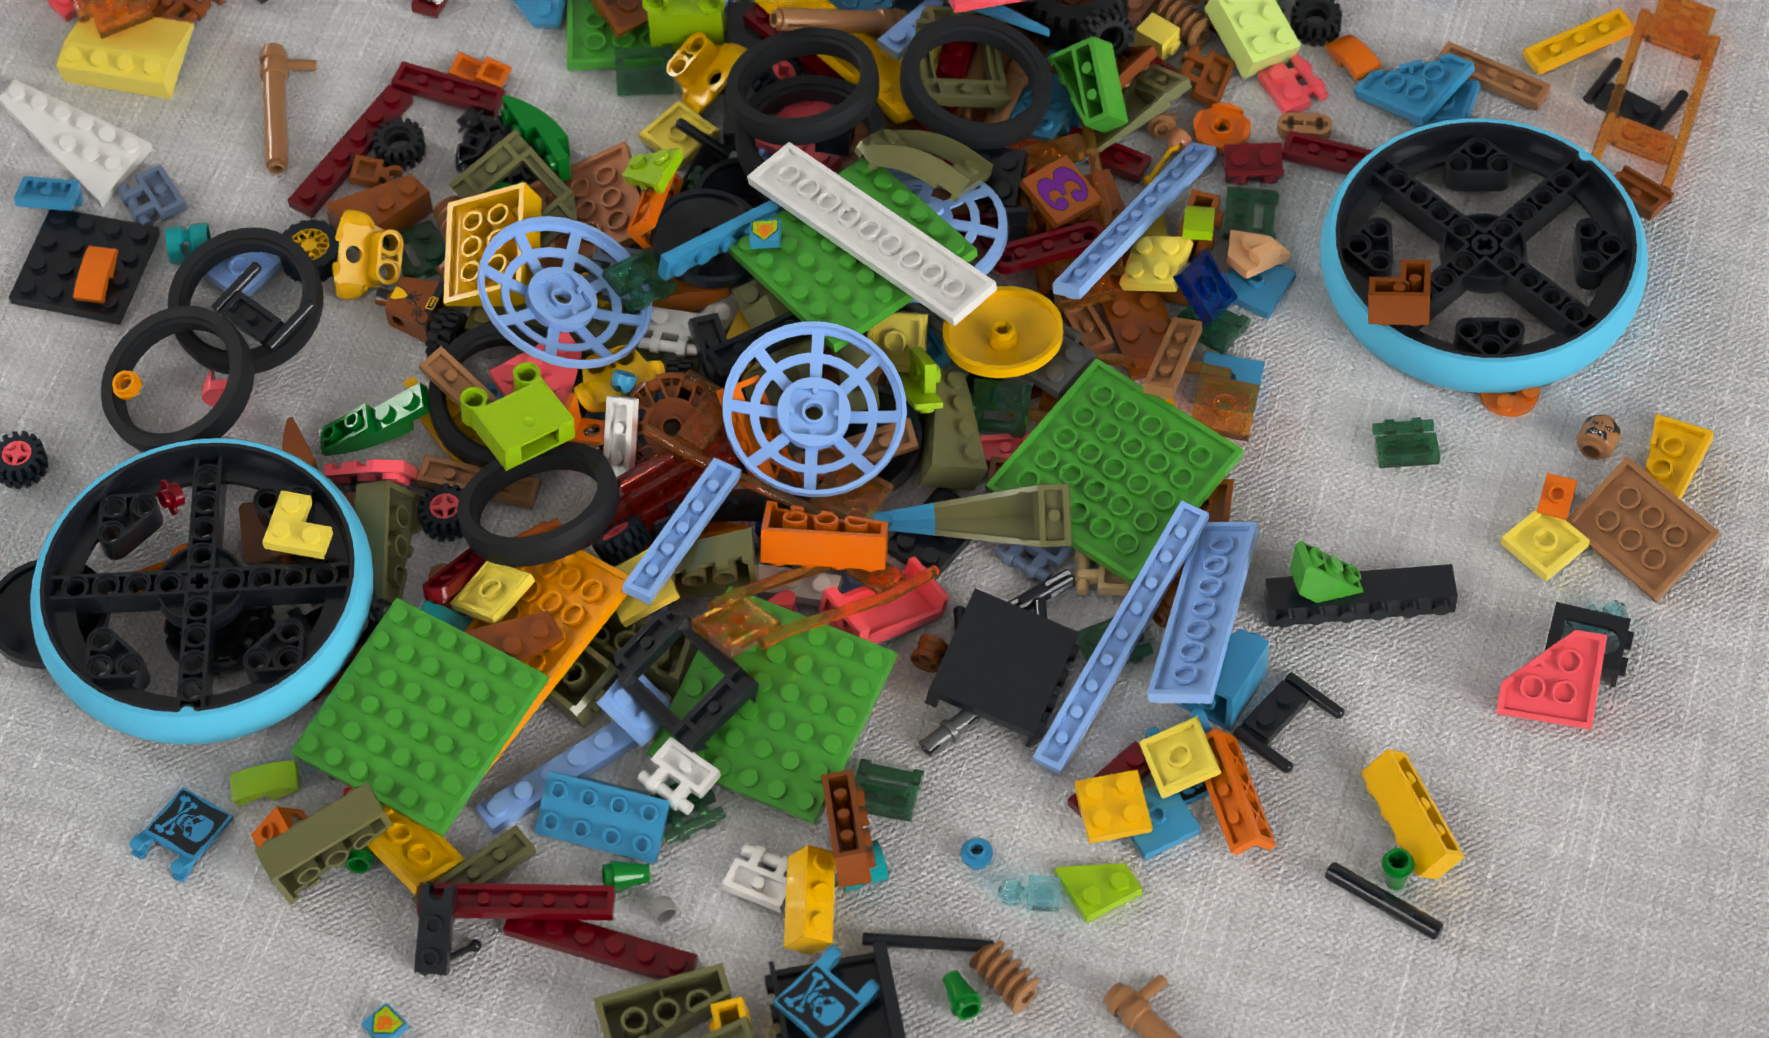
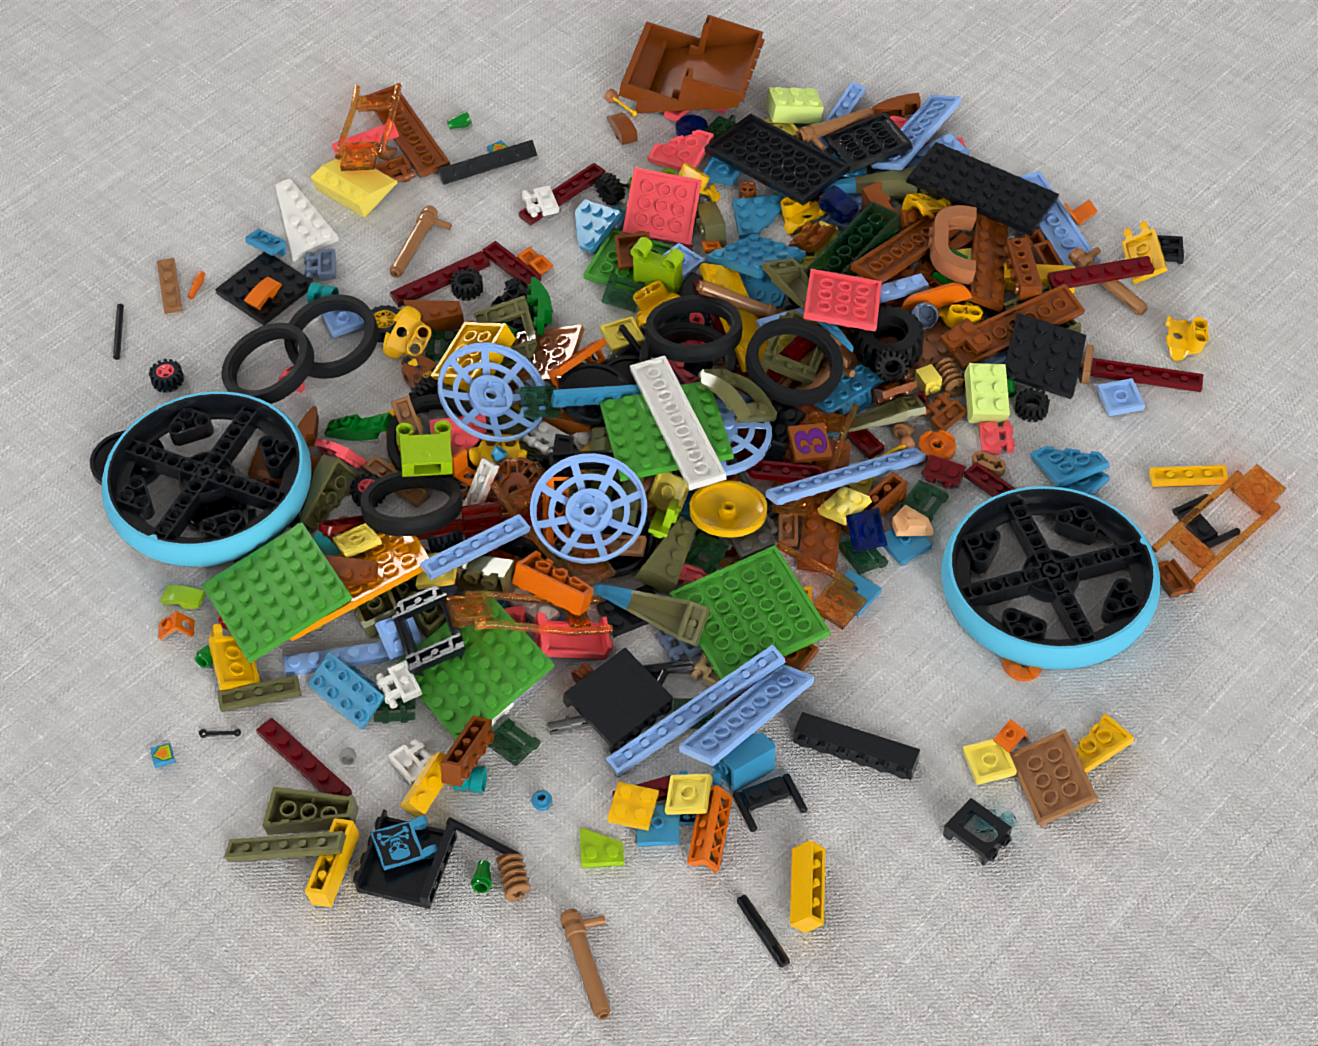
camera: 25 degrees right, 5 degrees down
(121, 381) = (239, 355): light orange plate -> none
(170, 496) = (214, 419): dark red plate -> none
(185, 827) = (126, 605): flag -> none
(253, 317) = (326, 345): black plate -> none
(290, 531) = (265, 462): light yellow plate -> none
(322, 841) = (183, 638): olive wedge -> none
(371, 171) = (443, 293): dark orange plate -> none
(435, 929) = (216, 711): black plate -> none
(531, 901) = (269, 716): dark red plate -> none
(625, 874) = (338, 727): green cone -> none
(653, 169) = (581, 343): lime wing -> none
(765, 233) = (621, 401): tile -> none
(1041, 893) = (563, 838): clear light blue plate -> none
(1093, 82) = (865, 388): bright green wedge -> none
(1172, 357) = (820, 562): medium nougat plate -> none
(1198, 222) = (881, 490): lime slope -> none
(1322, 575) = (833, 723): bright green slope -> none
(1354, 55) = (1042, 434): orange slope -> none
(1397, 867) = (778, 913): green cone -> none
(1402, 298) = (973, 579): dark orange brick -> none
(1406, 449) = (936, 672): clear green plate -> none
(1502, 79) = (1126, 479): medium nougat plate -> none
(1558, 683) = (943, 846): coral plate -> none
(1598, 437) = (1060, 712): medium nougat head -> none

